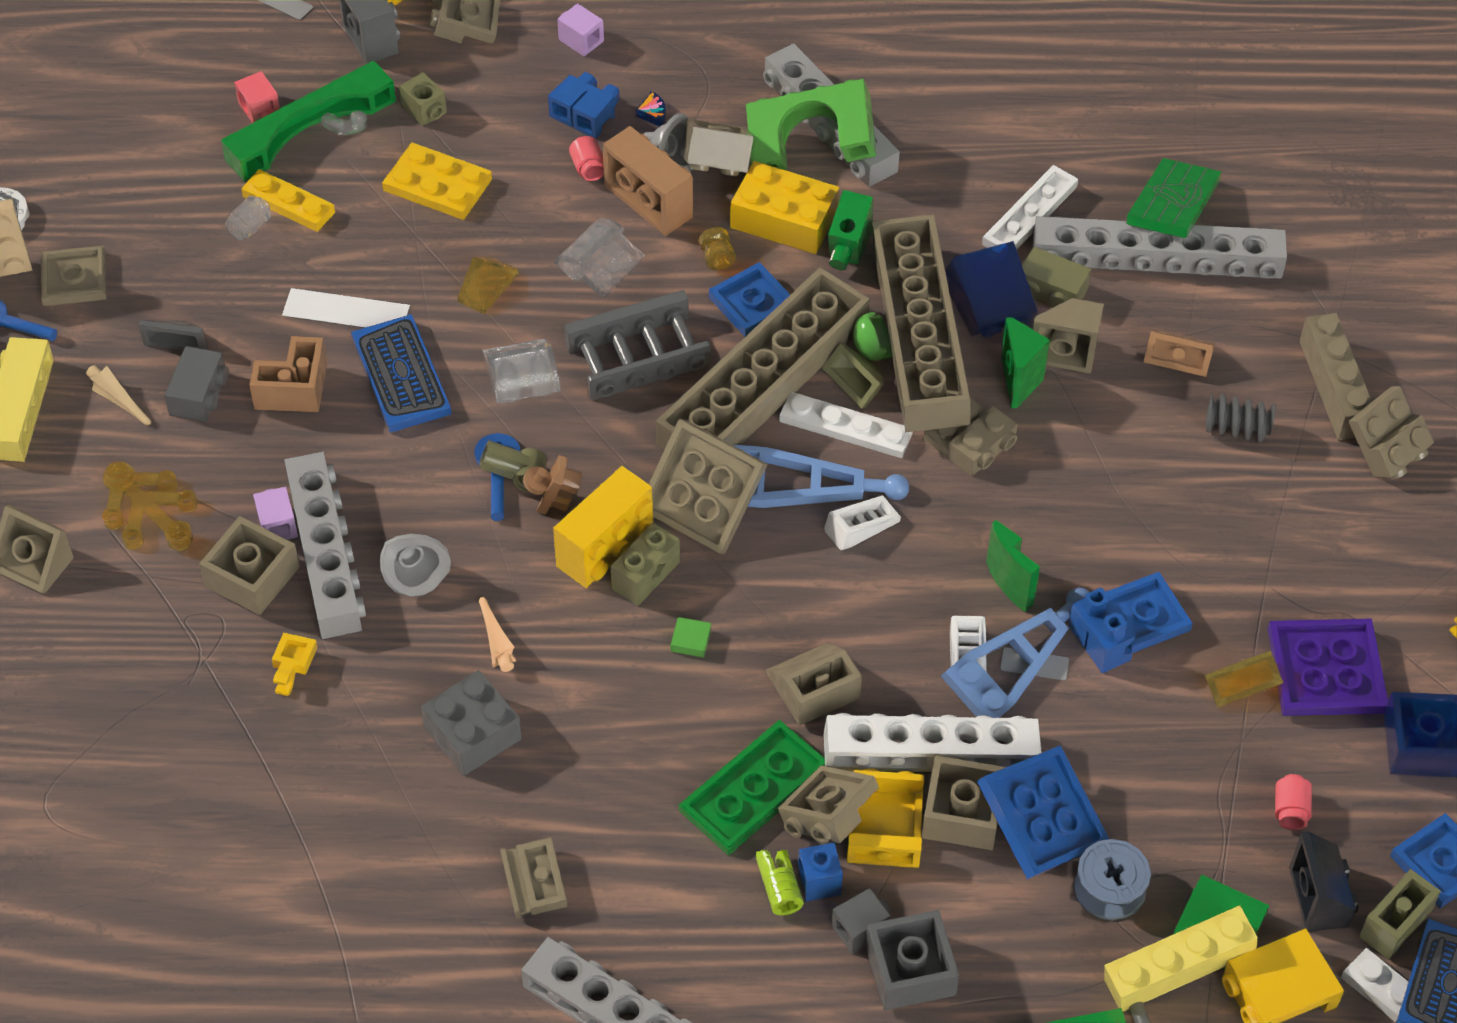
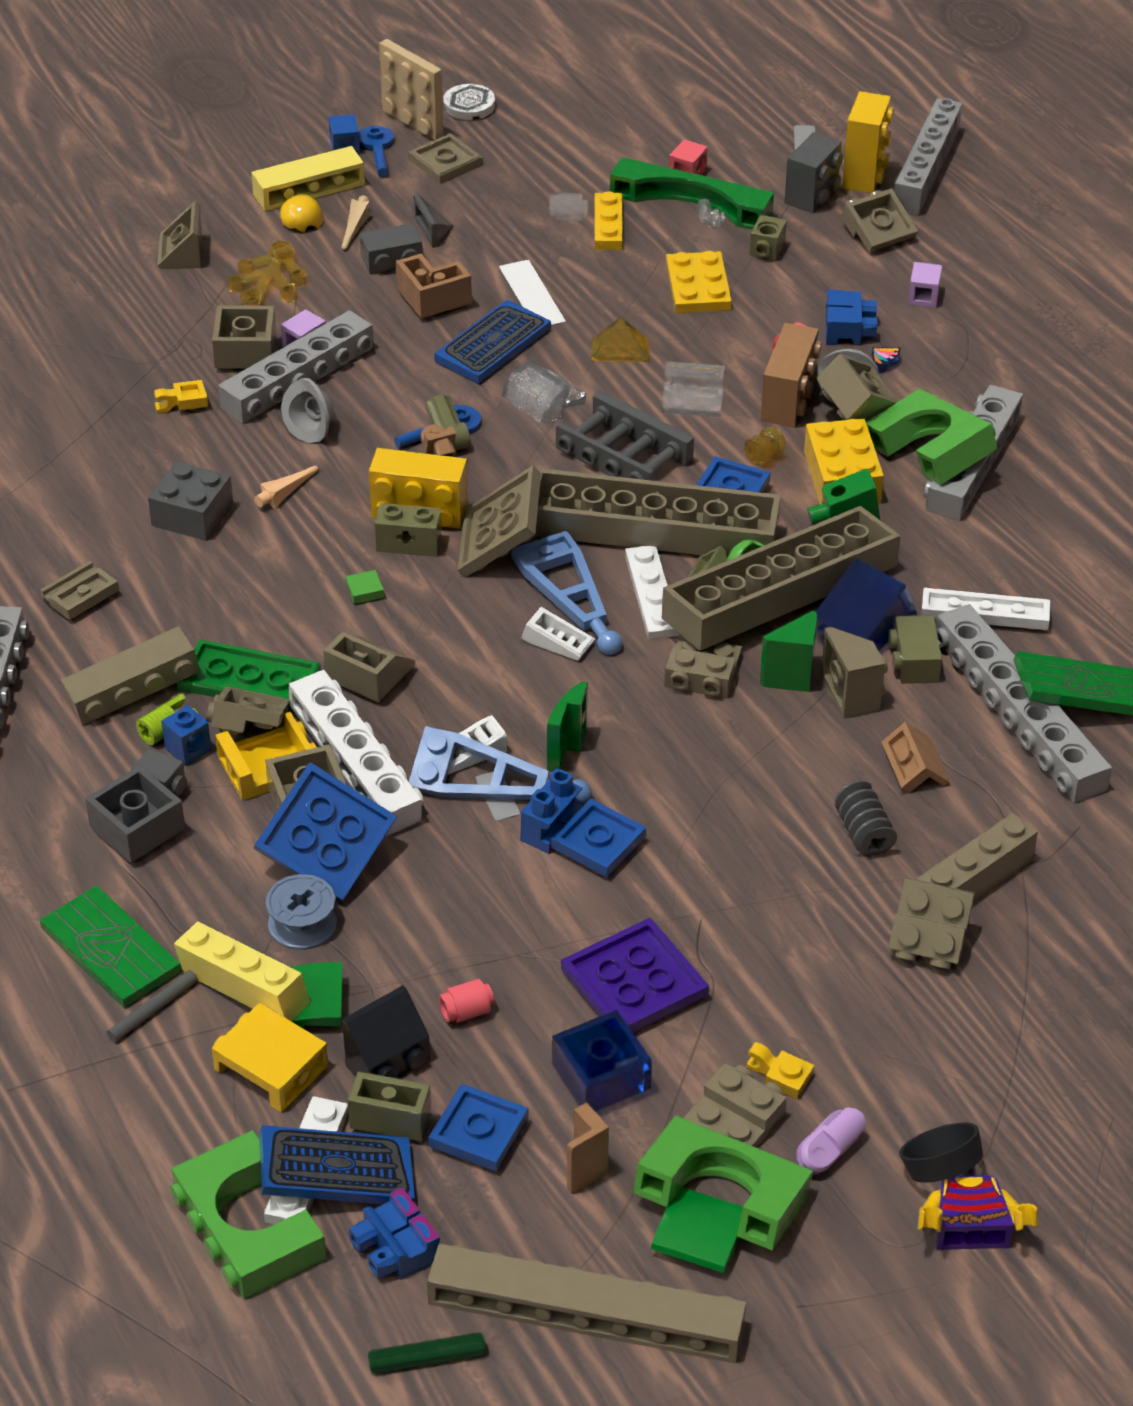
camera: 60 degrees right, 10 degrees down
(66, 432) = (301, 212): none -> yellow hair
(707, 884) = (130, 675): none -> dark tan brick
(1243, 678) = (571, 921): clear yellow slope -> none

